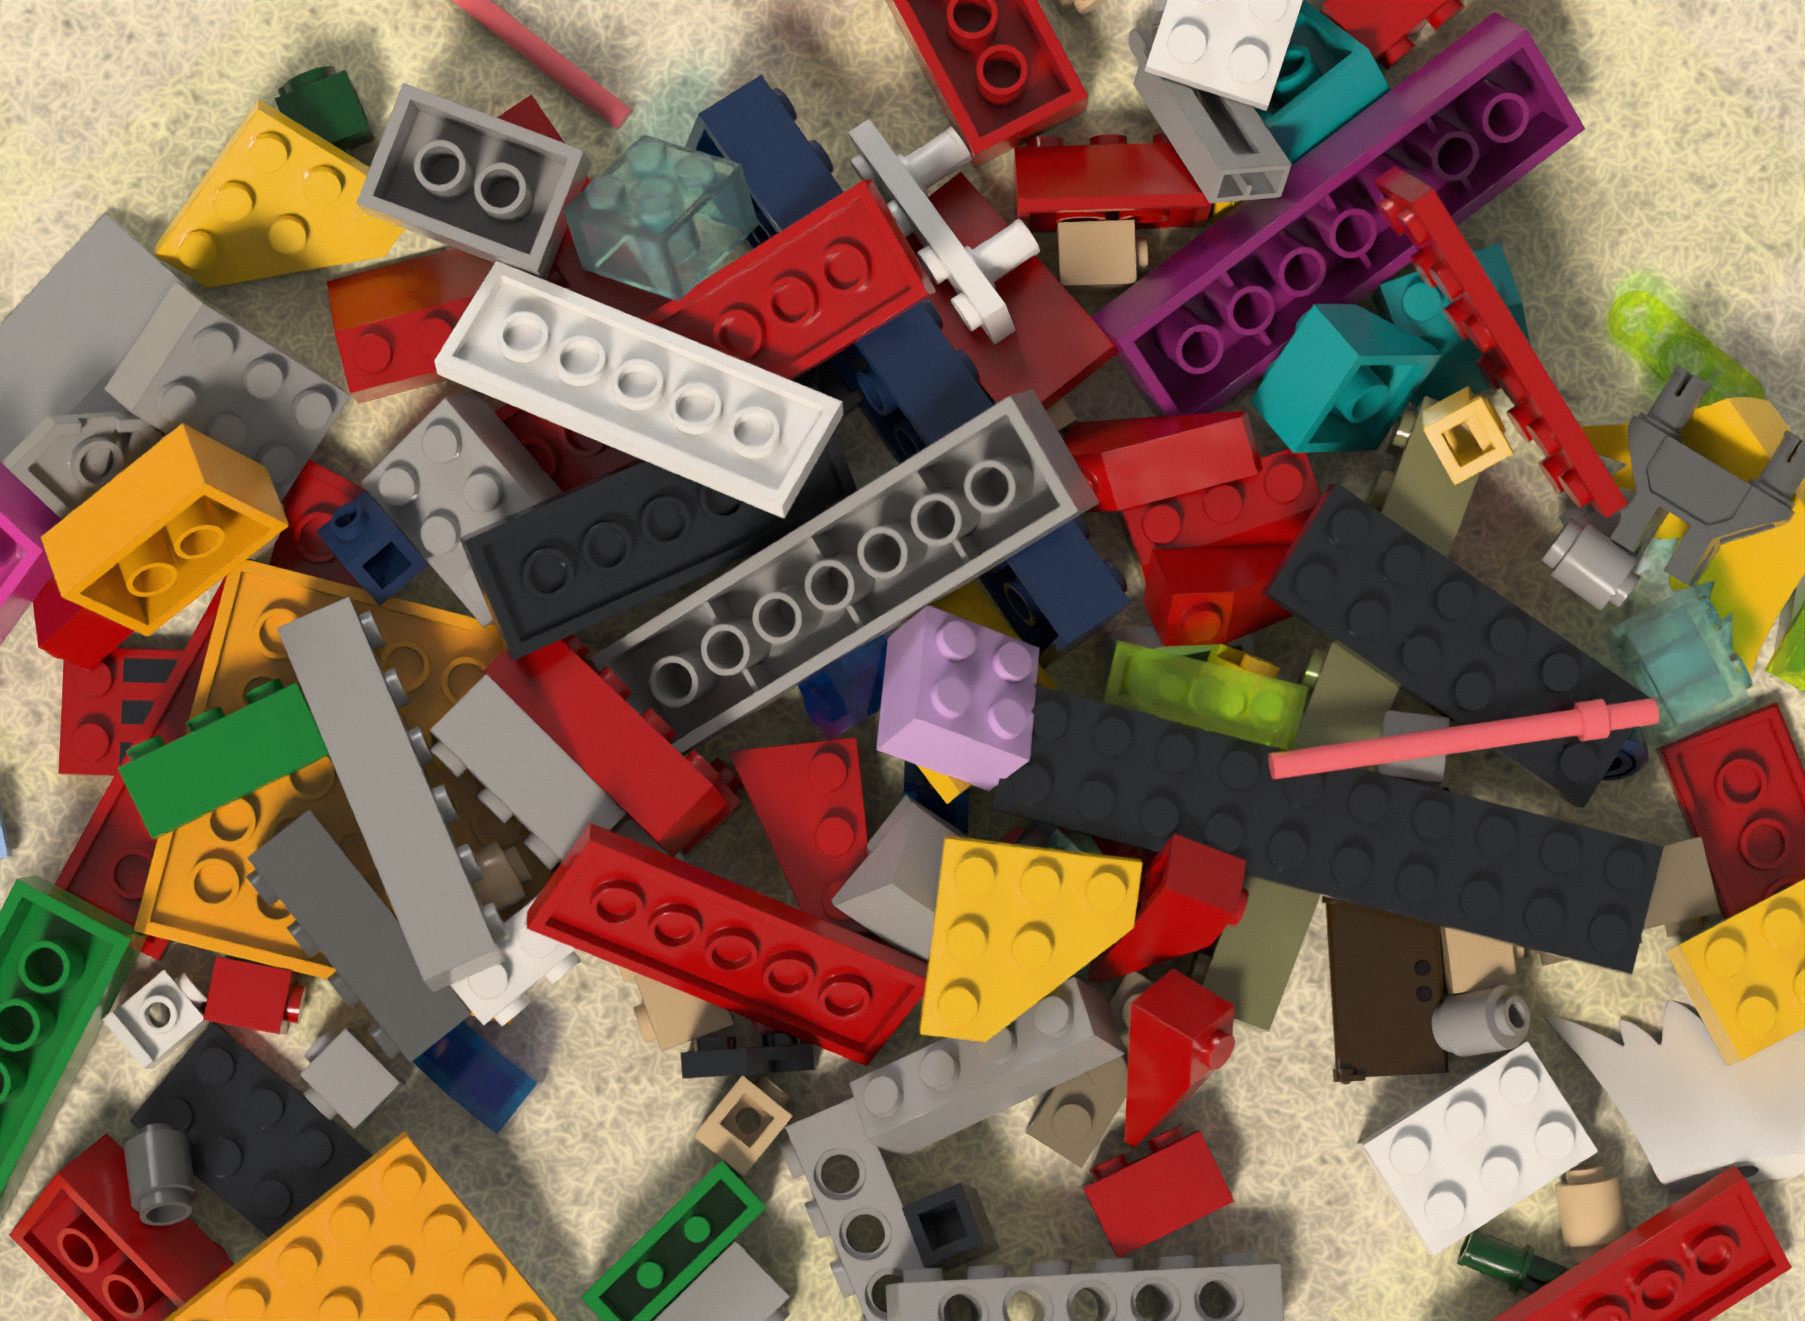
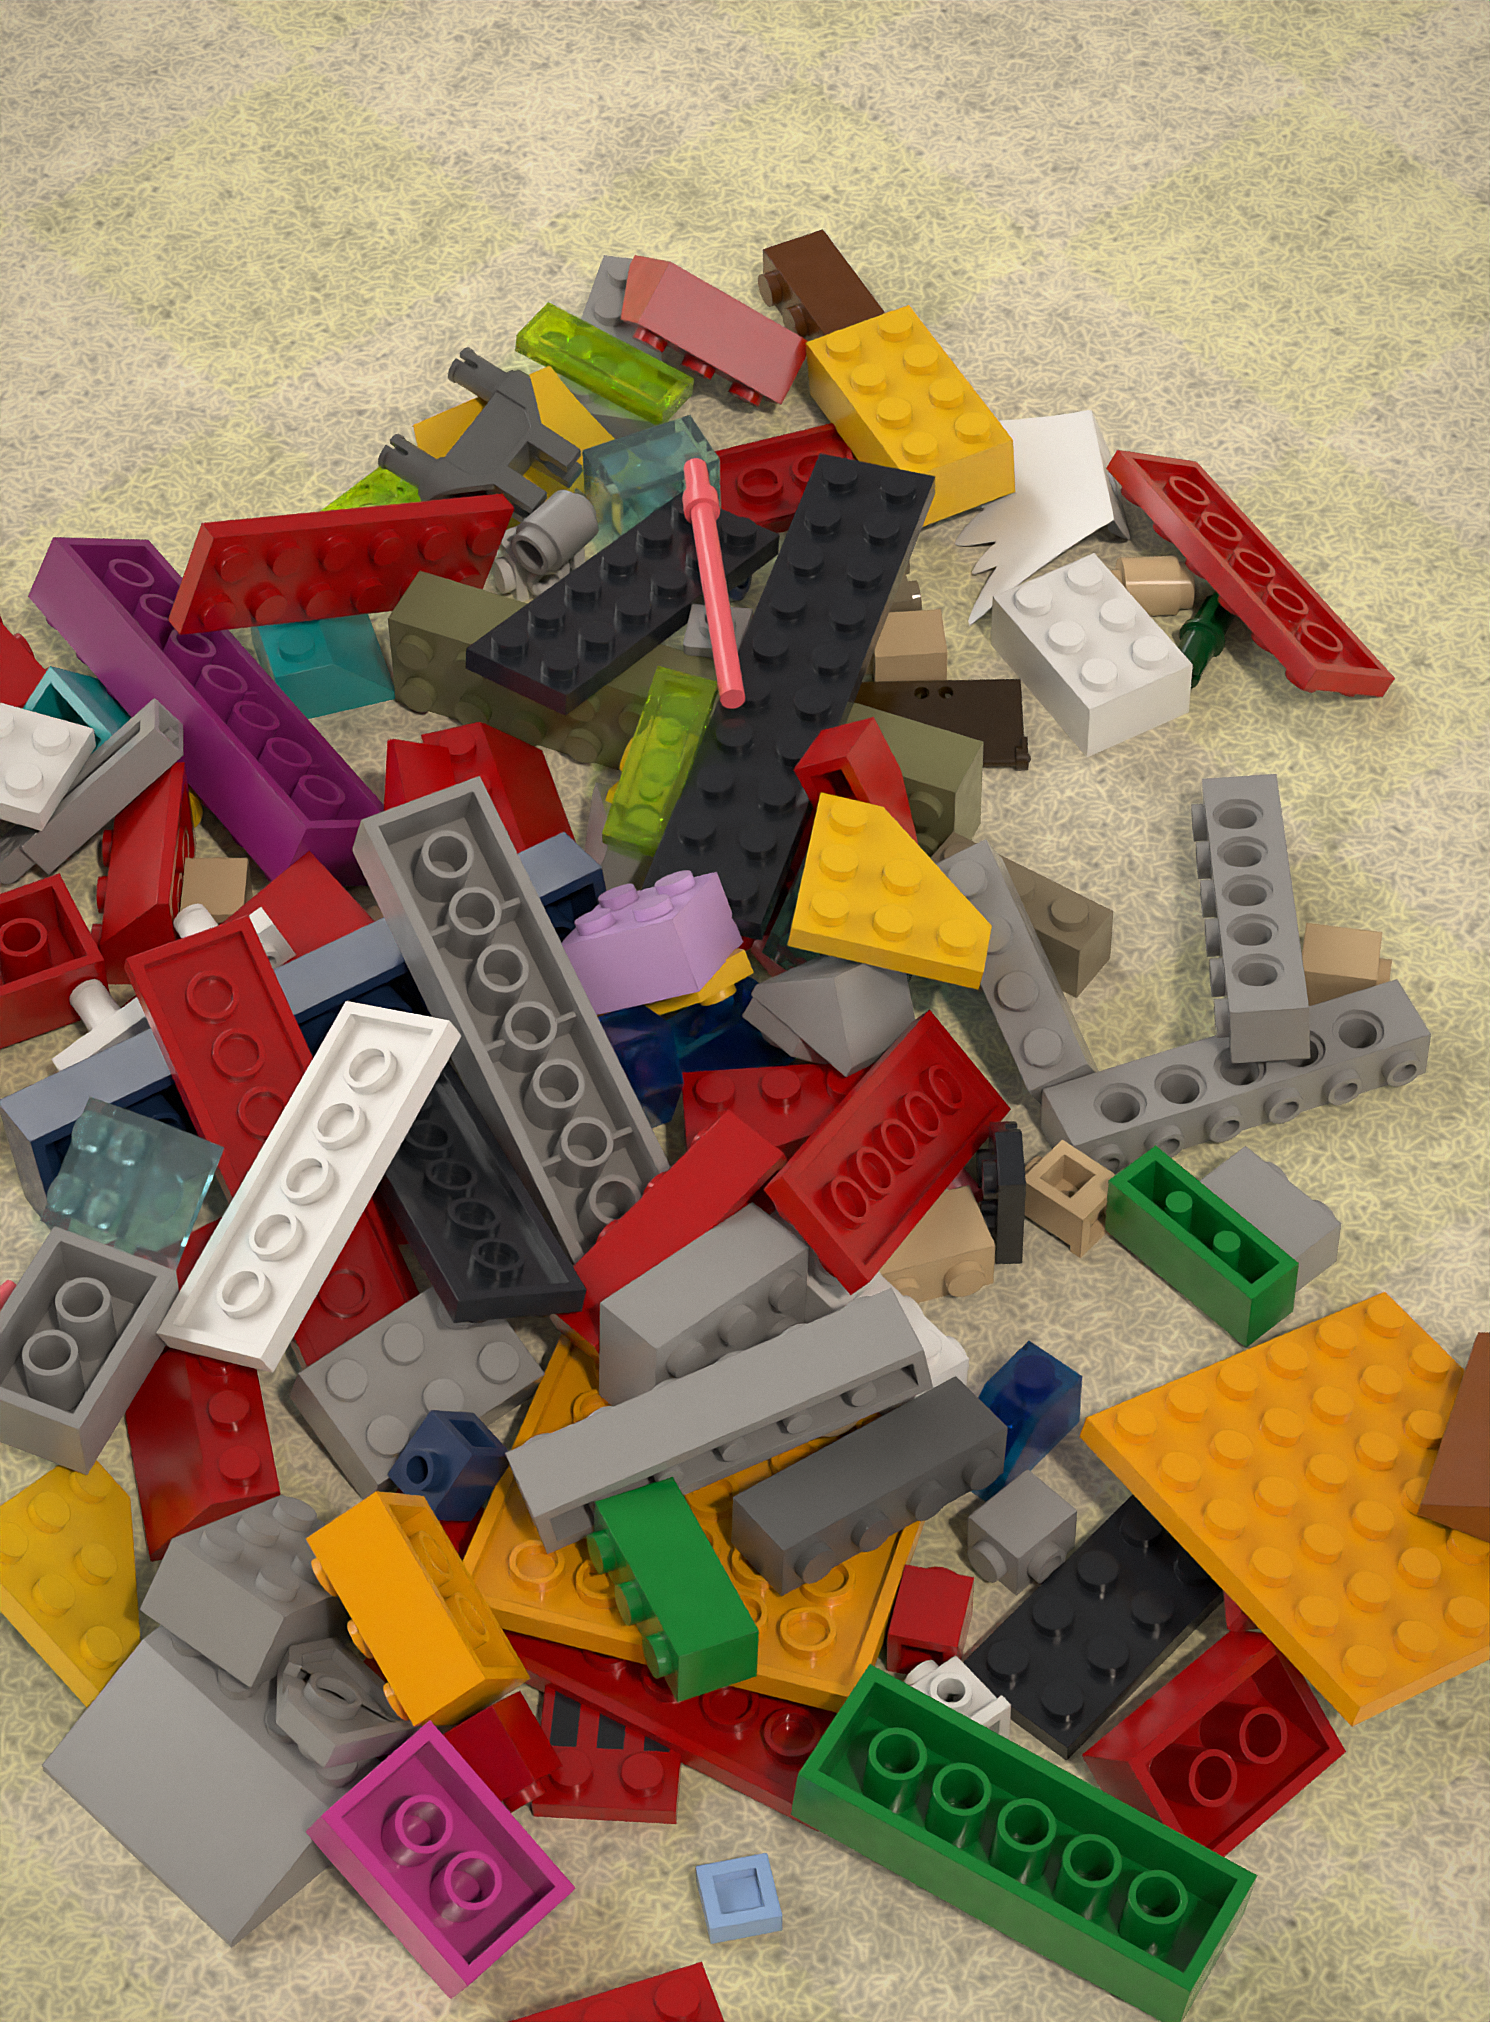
camera: 90 degrees left, 35 degrees down
(160, 1174) = (1127, 1681): dark grey brick -> none
(950, 1227) = (1170, 1014): black brick -> none
(1156, 1192) = (1137, 877): red brick -> none
(1174, 1047) = (1001, 802): red slope -> none
(1211, 593) = (554, 795): red slope -> none
(1342, 380) = (358, 704): teal slope -> none
(1466, 434) = (430, 560): yellow brick -> none
(1481, 1021) = (973, 636): light grey brick -> none

